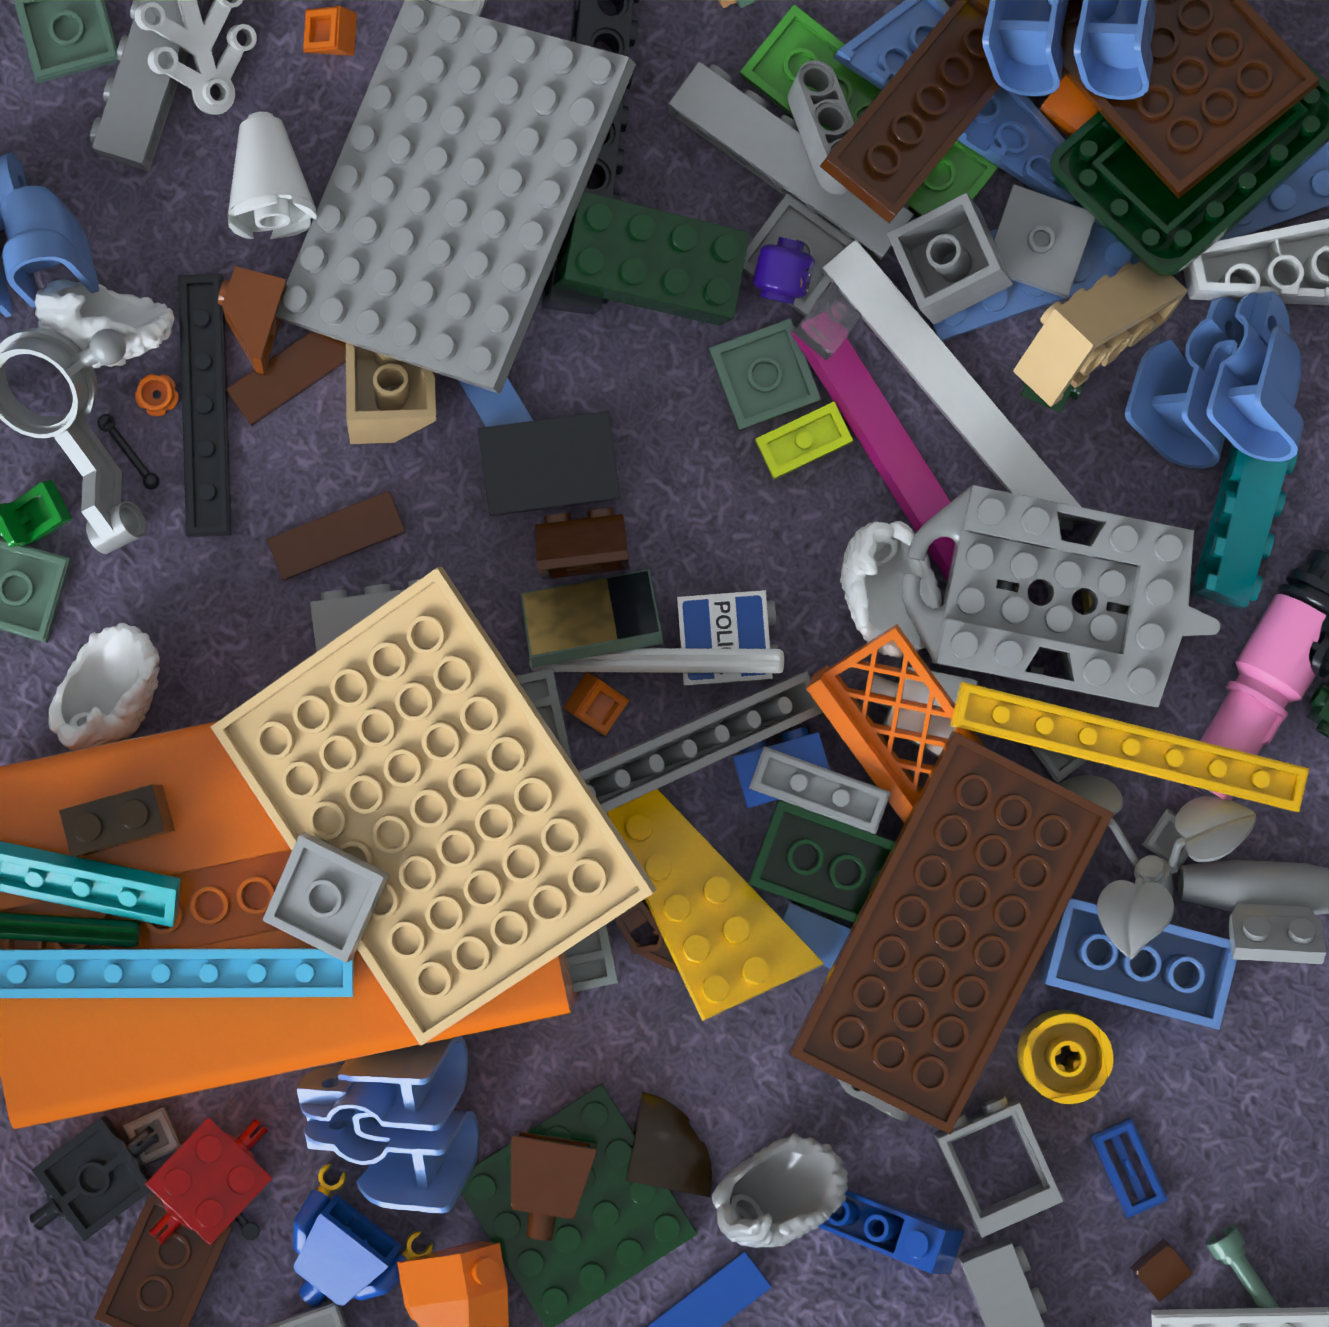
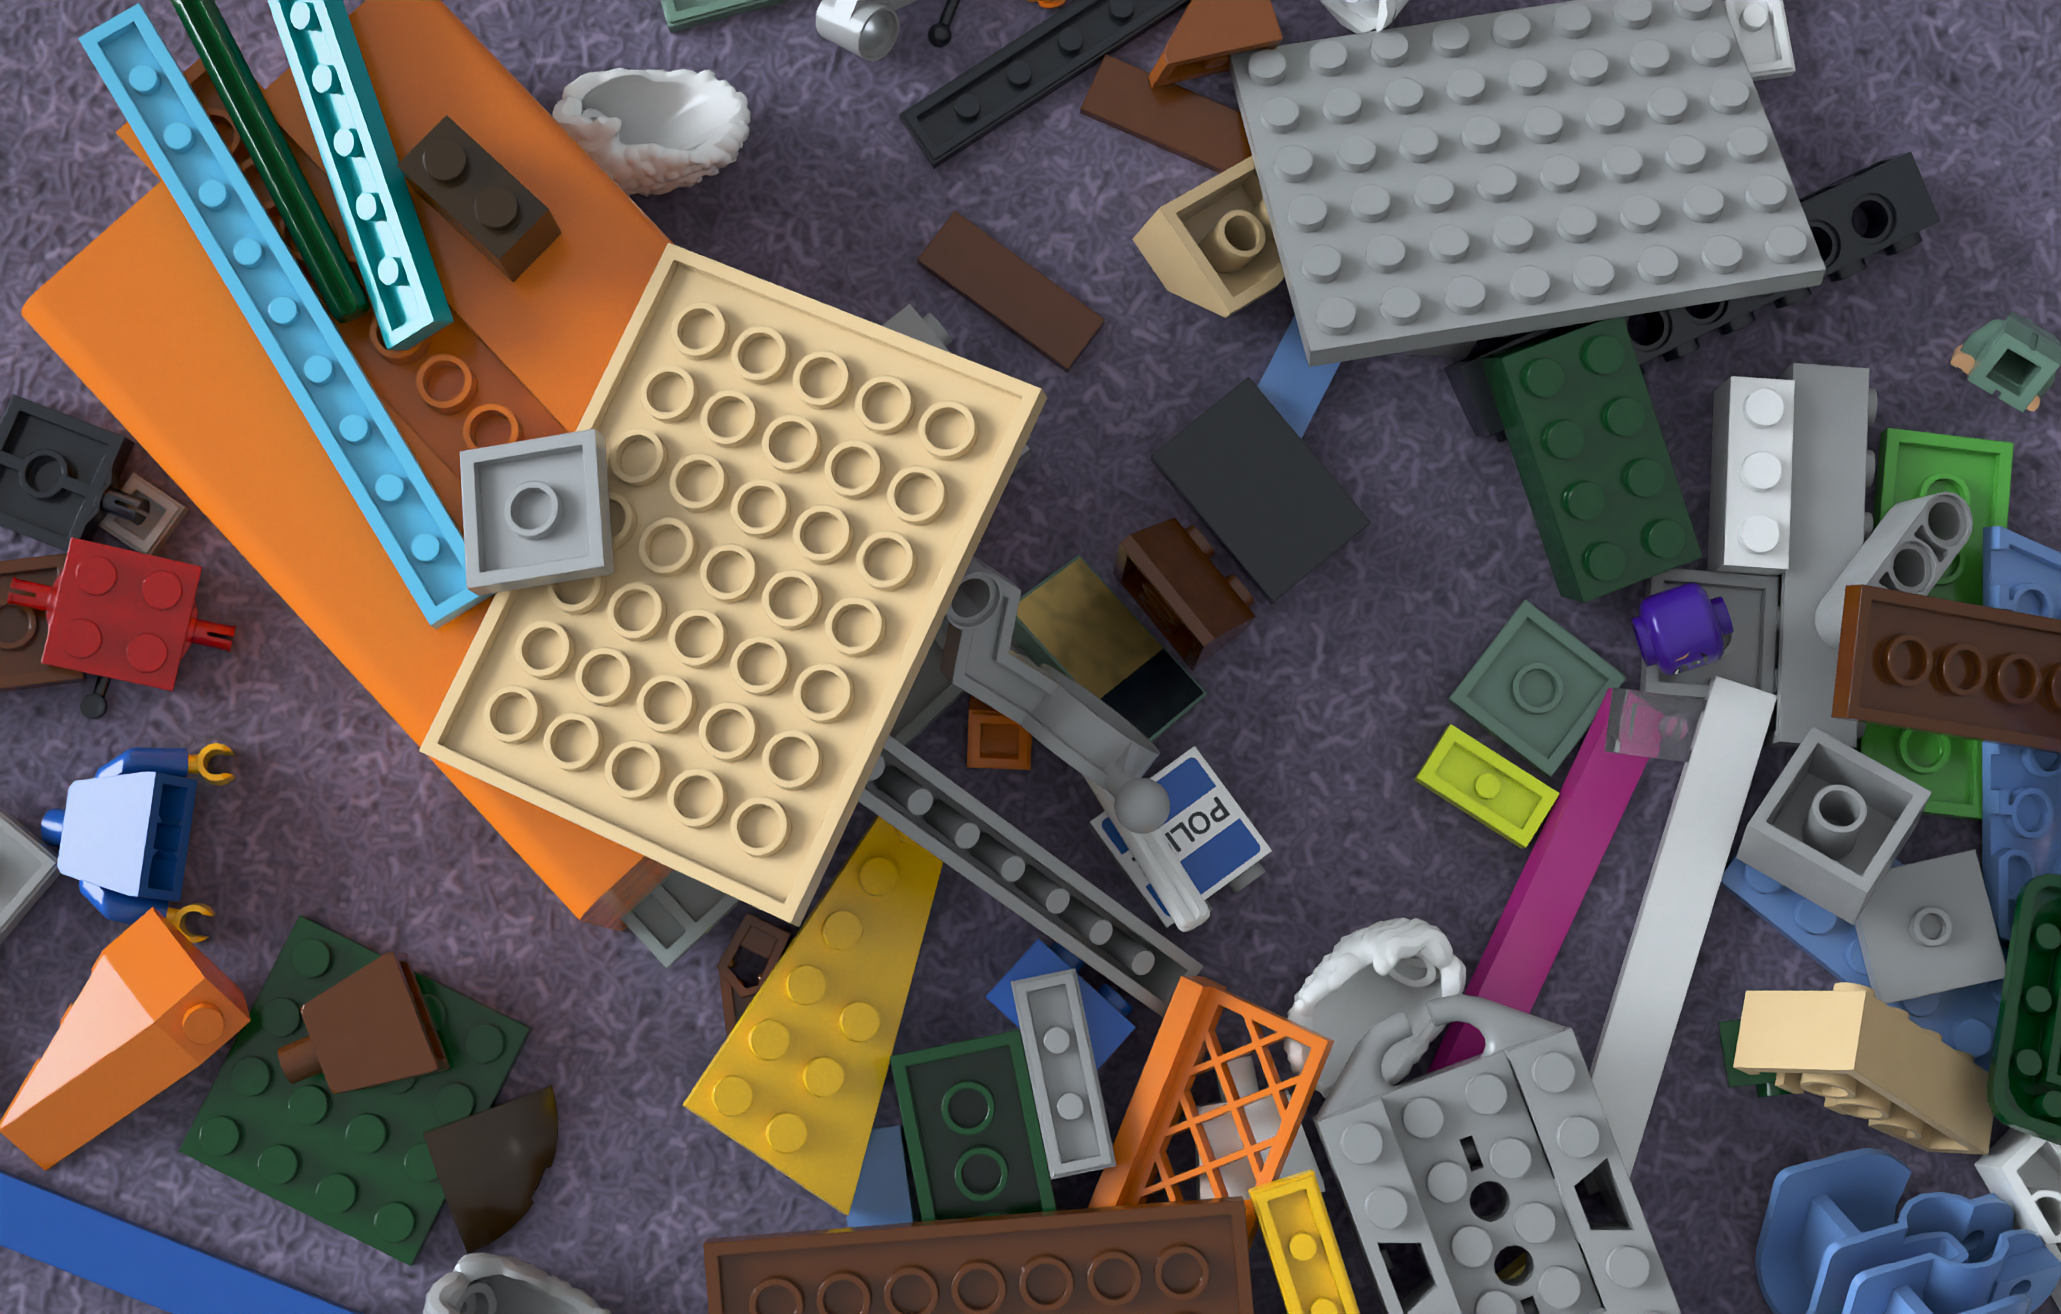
camera: 55 degrees right, 5 degrees down
(416, 1143) = (332, 801): medium blue piece -> none
(609, 667) = (1046, 701): none -> light grey piece
(719, 170) = (1751, 476): none -> white brick

